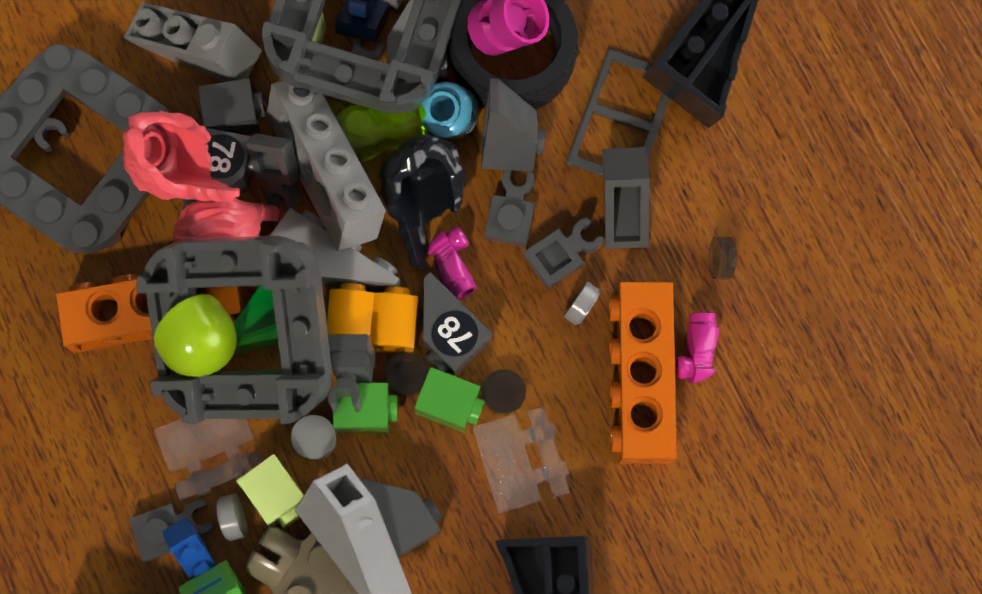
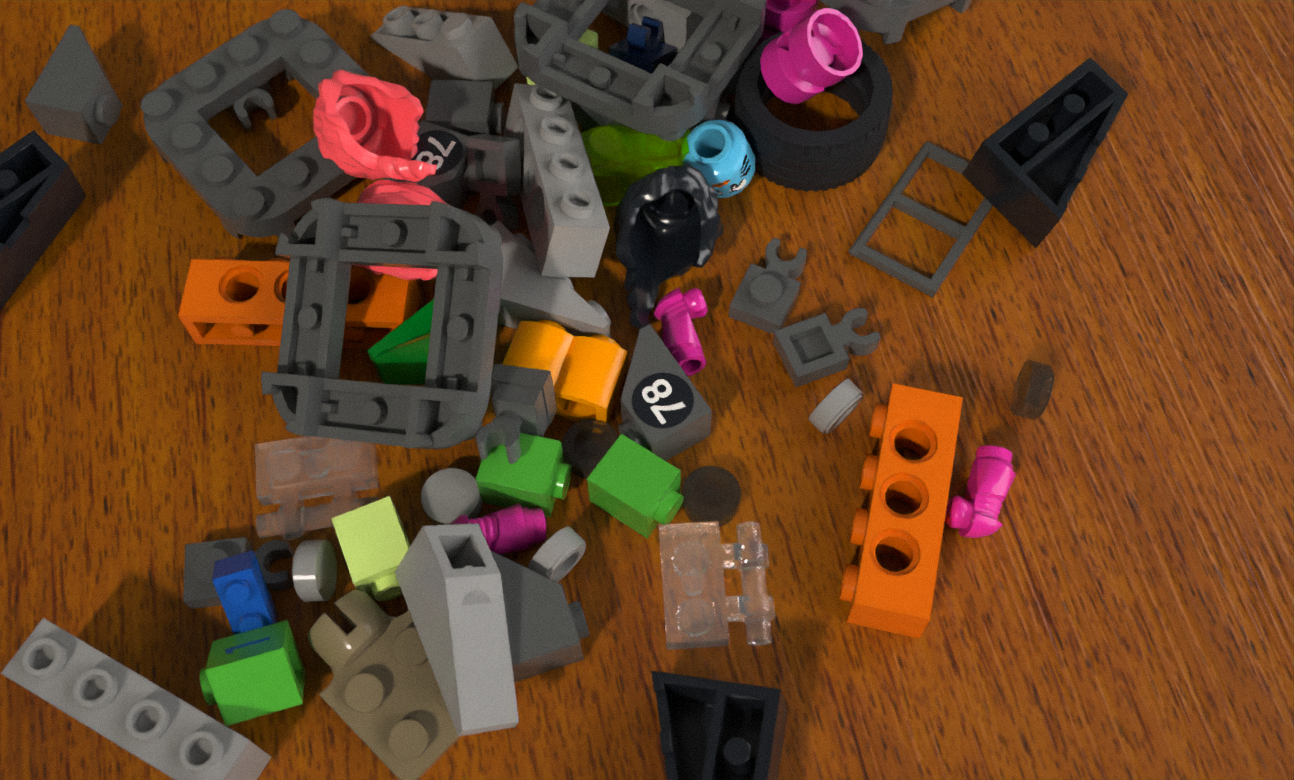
camera: 20 degrees right, 15 degrees down
(196, 337) = (333, 325): lime helmet -> none
(360, 455) = (510, 528): none -> dark pink arm
(405, 467) = (558, 554): none -> light grey tile
(509, 131) = (786, 188): dark grey slope -> none
(626, 197) = (918, 295): dark grey slope -> none

